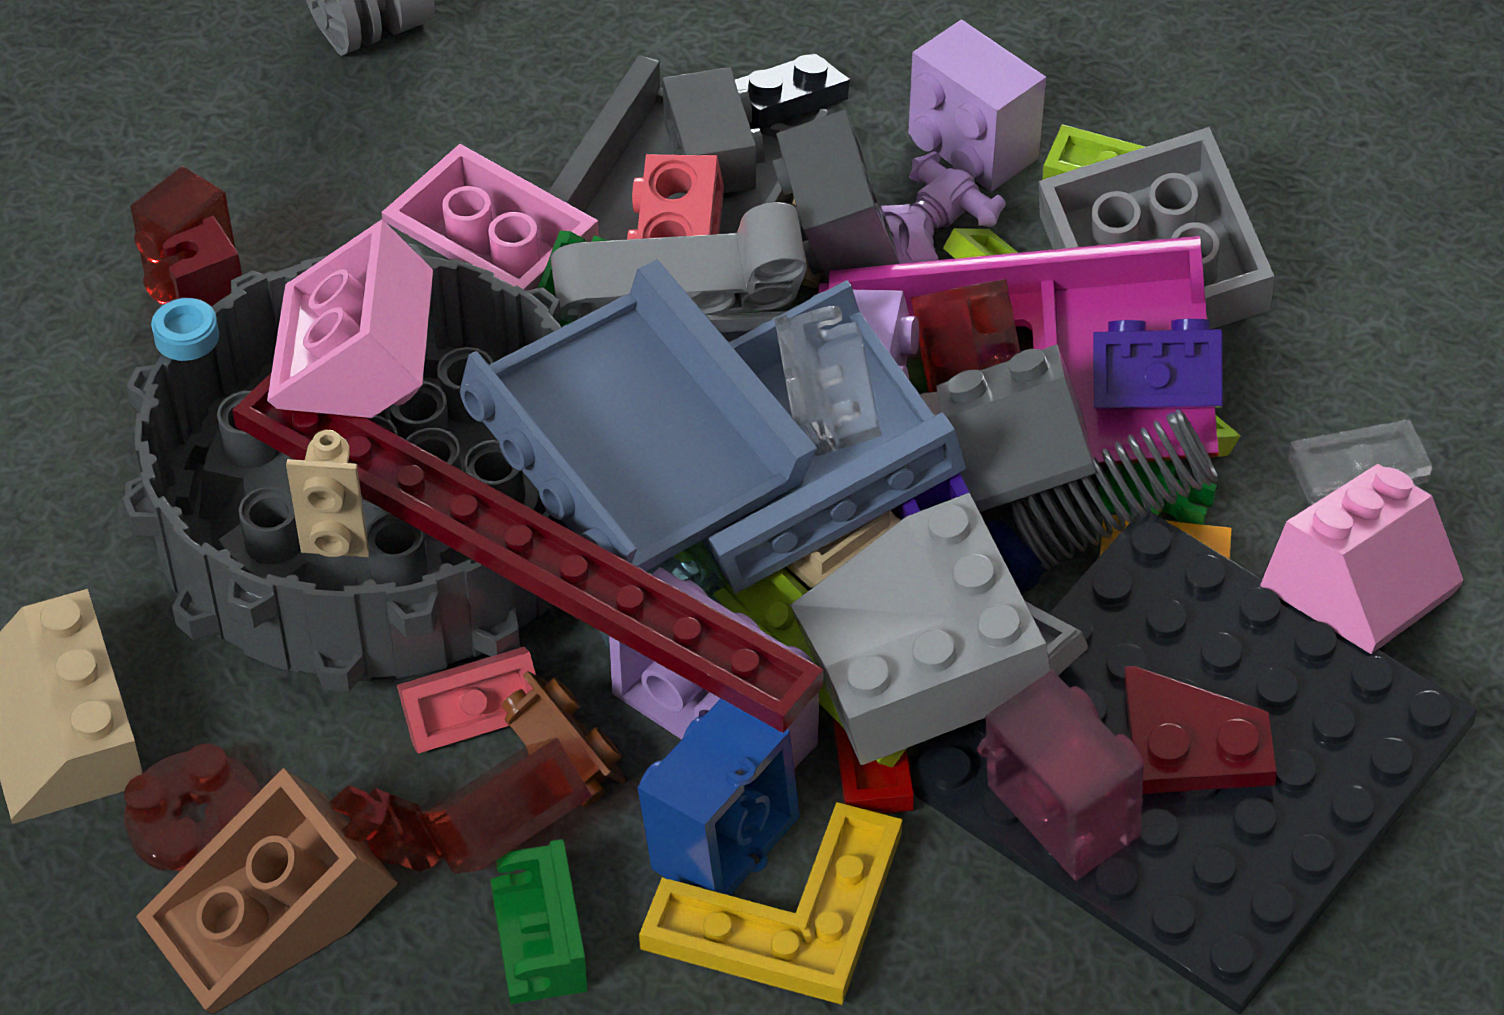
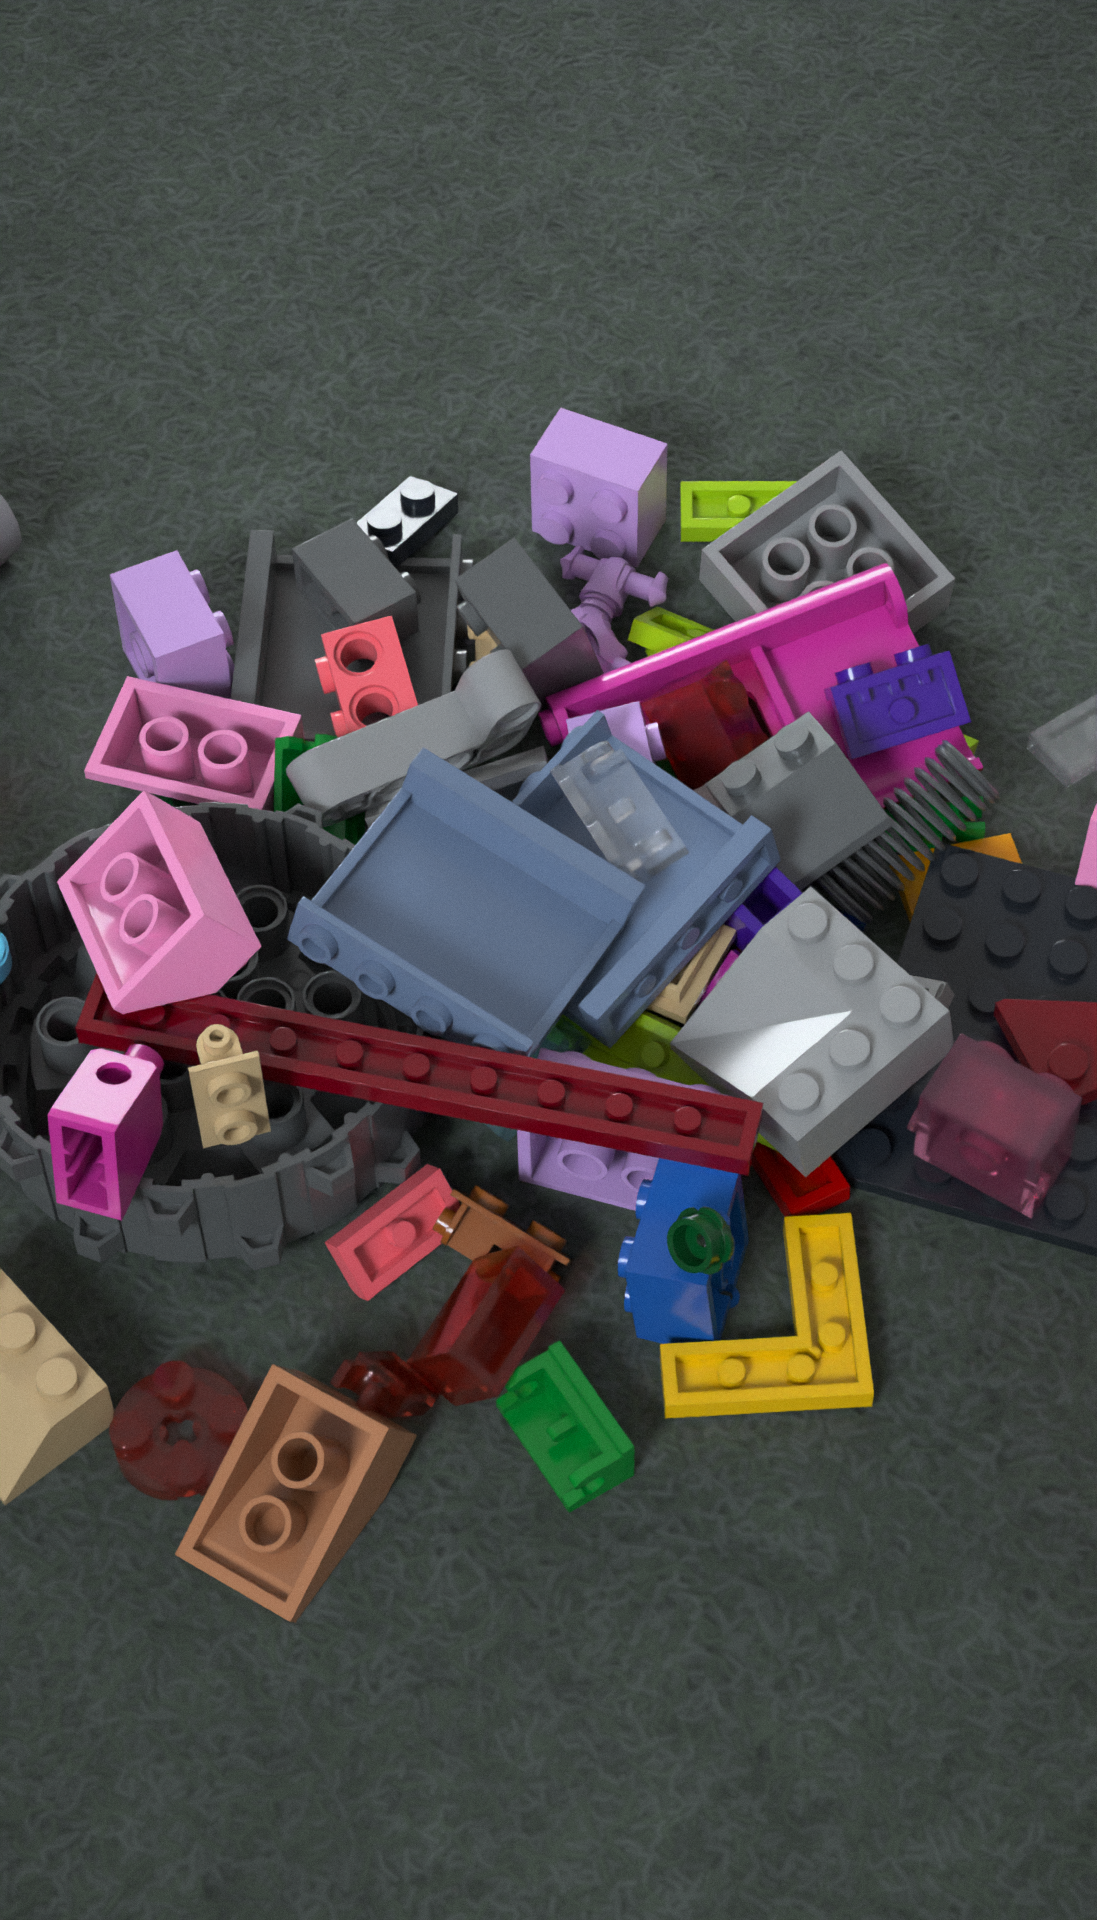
camera: 20 degrees left, 5 degrees up
(211, 501) = (106, 1129): none -> dark pink torso
(520, 113) = (170, 627): none -> lavender brick
(711, 778) = (700, 1241): none -> dark green plate

